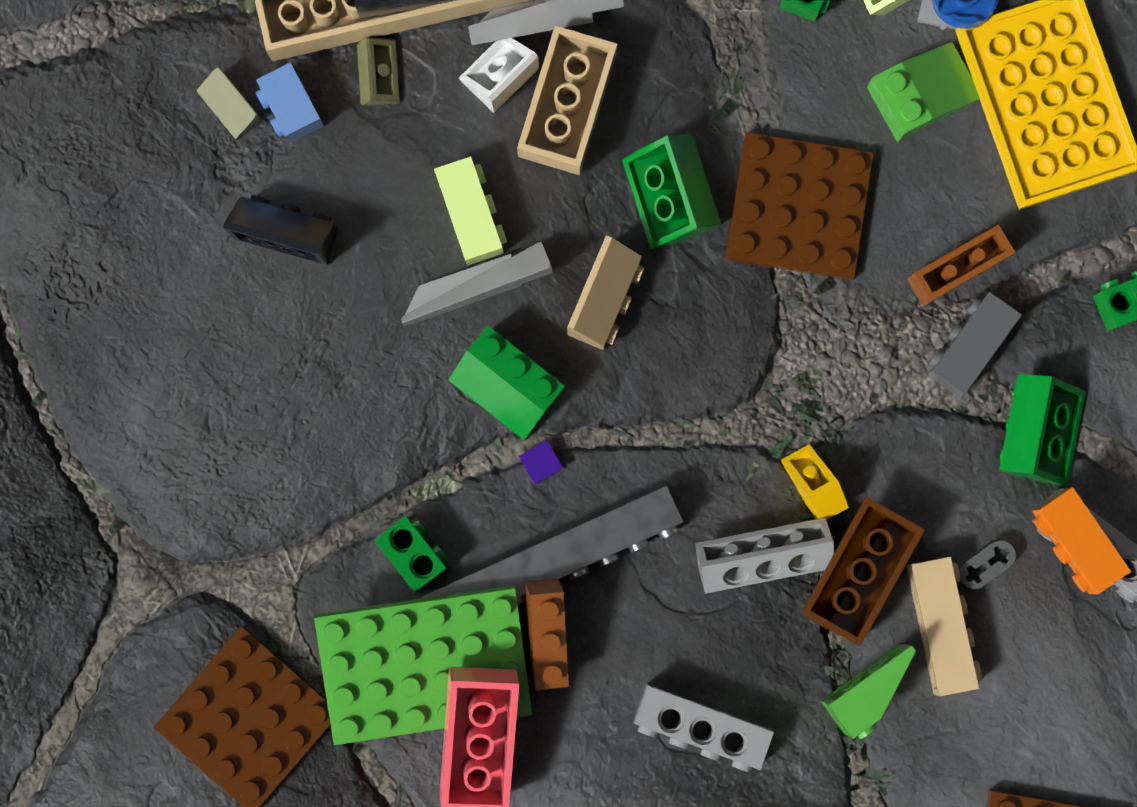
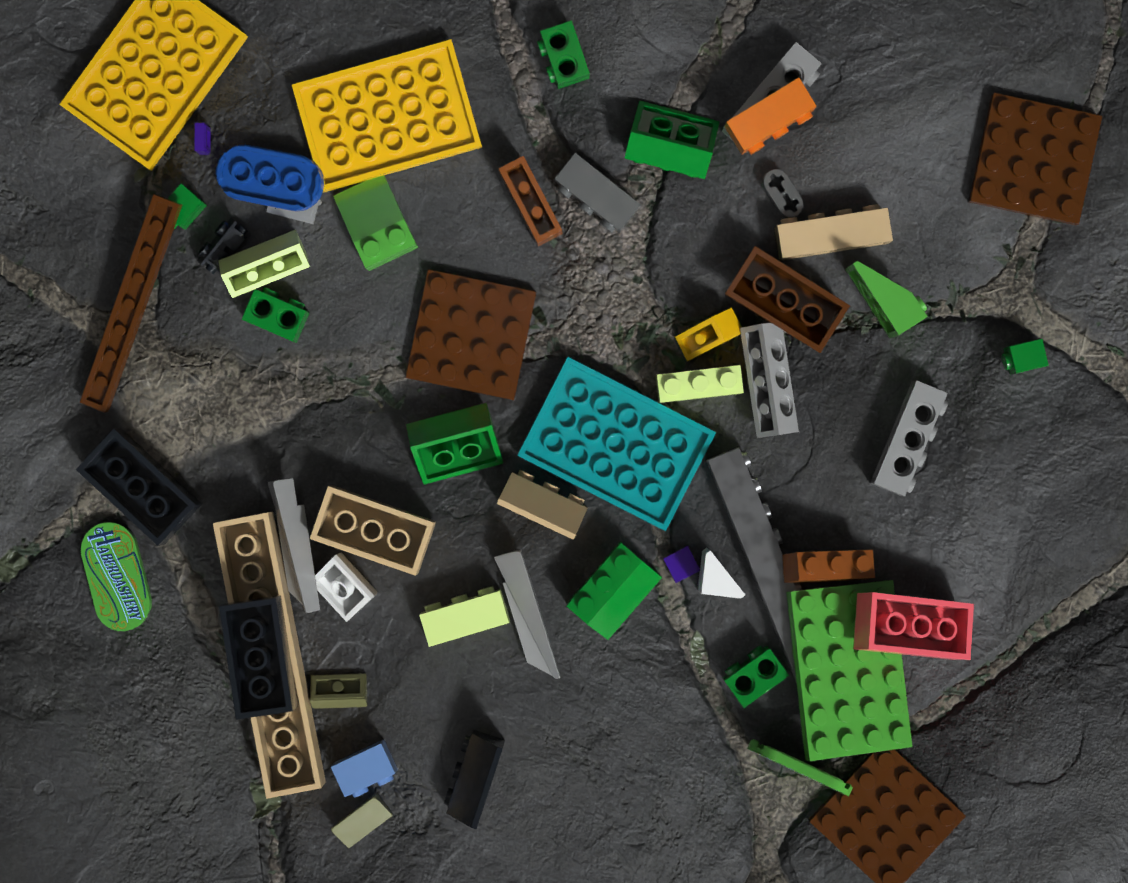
camera: 90 degrees left, 5 degrees up
(305, 610) = (800, 767): none -> bright green tile
(526, 500) = (715, 579): none -> white slope
(679, 379) = (616, 444): none -> teal plate
(755, 472) = (699, 384): none -> yellowish green brick

